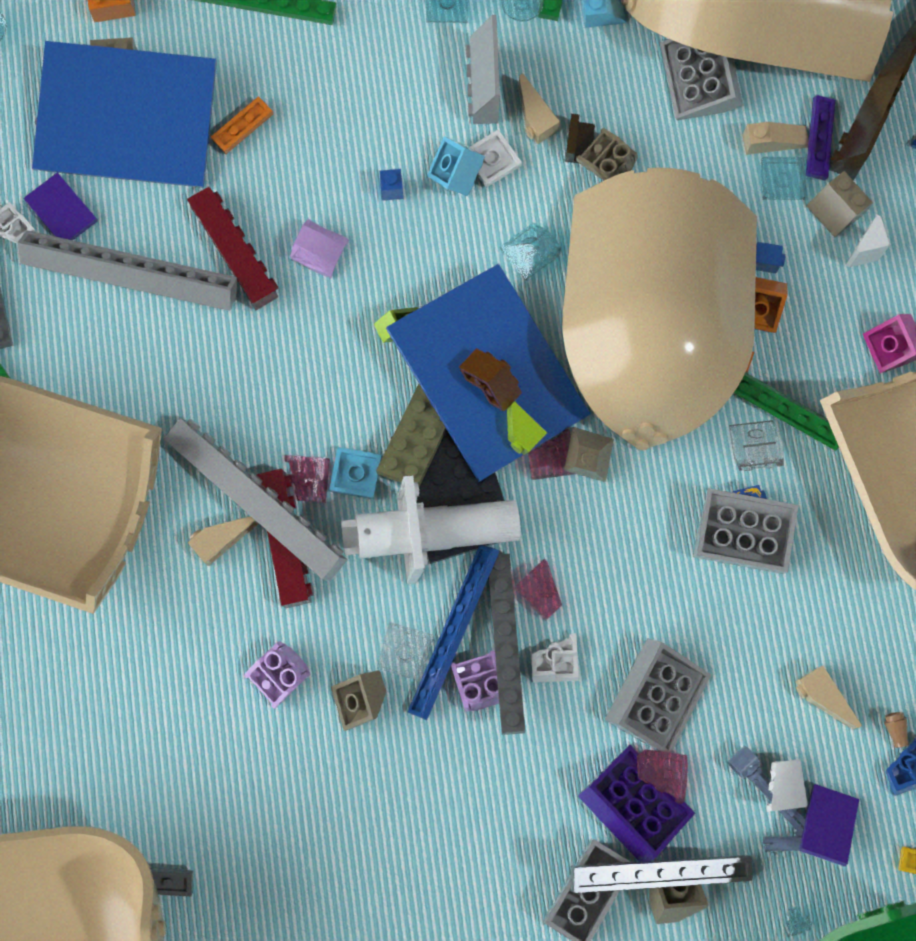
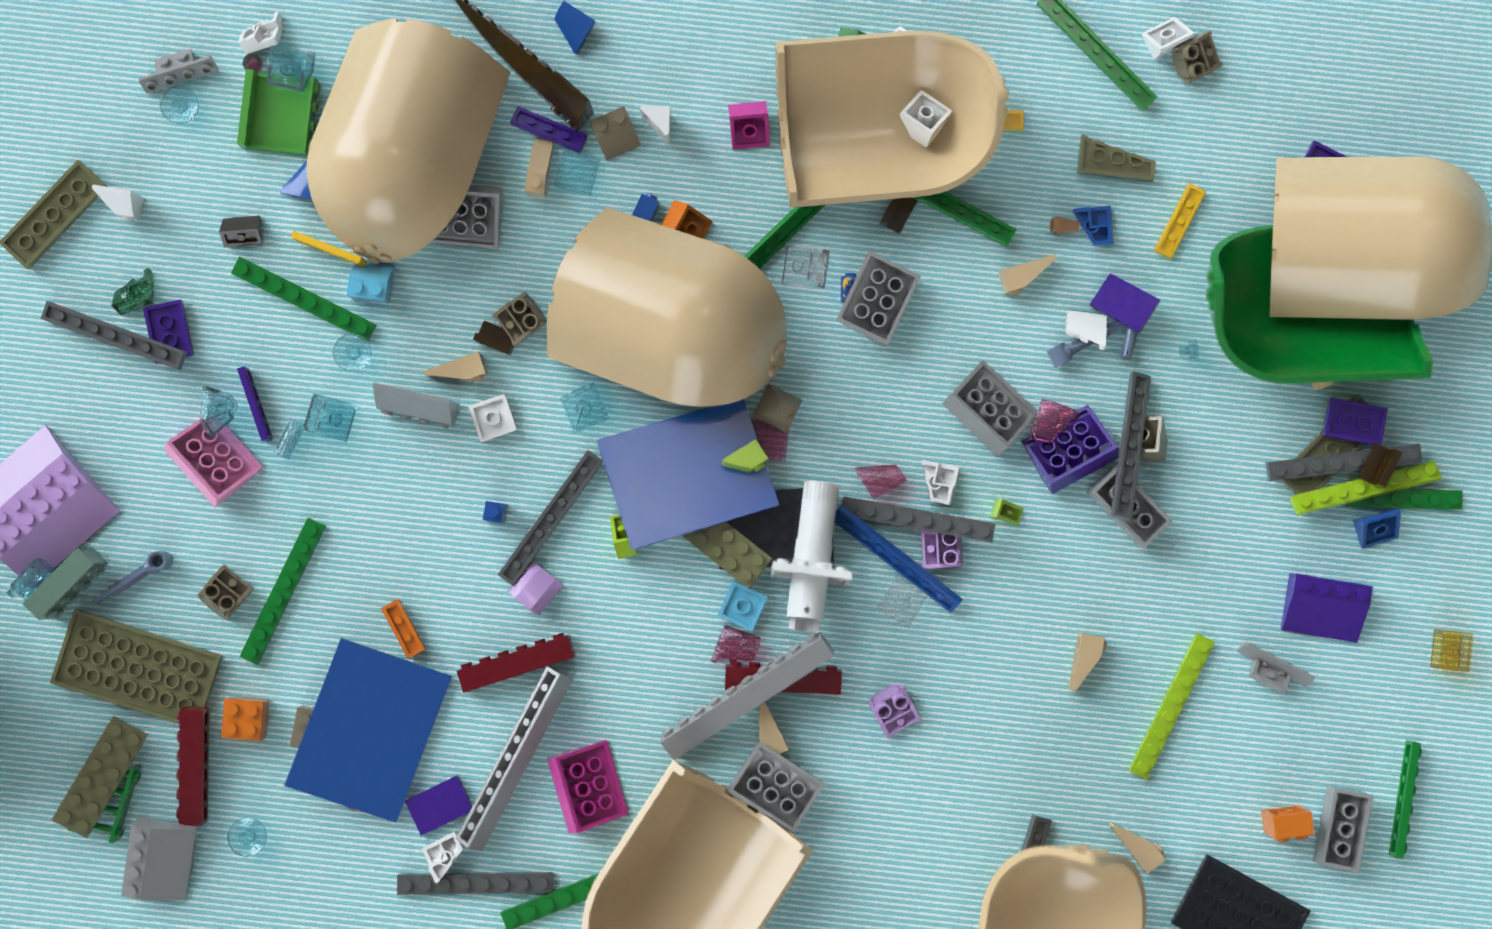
camera: 80 degrees left, 10 degrees up
(114, 357) = (587, 786): none -> dark pink slope
(158, 558) = (776, 786): none -> light grey slope
(359, 699) = (931, 648): dark tan slope -> none
(398, 888) = (1087, 654): none -> tan slope
(399, 243) = (550, 518): none -> dark grey plate
(455, 166) = (494, 452): medium azure slope -> none
(492, 378) = (698, 473): reddish brown brick -> none
(542, 748) = (1006, 511): none -> lime slope
(851, 532) = (898, 213): none -> dark brown panel
(873, 612) = (970, 216): none -> green plate

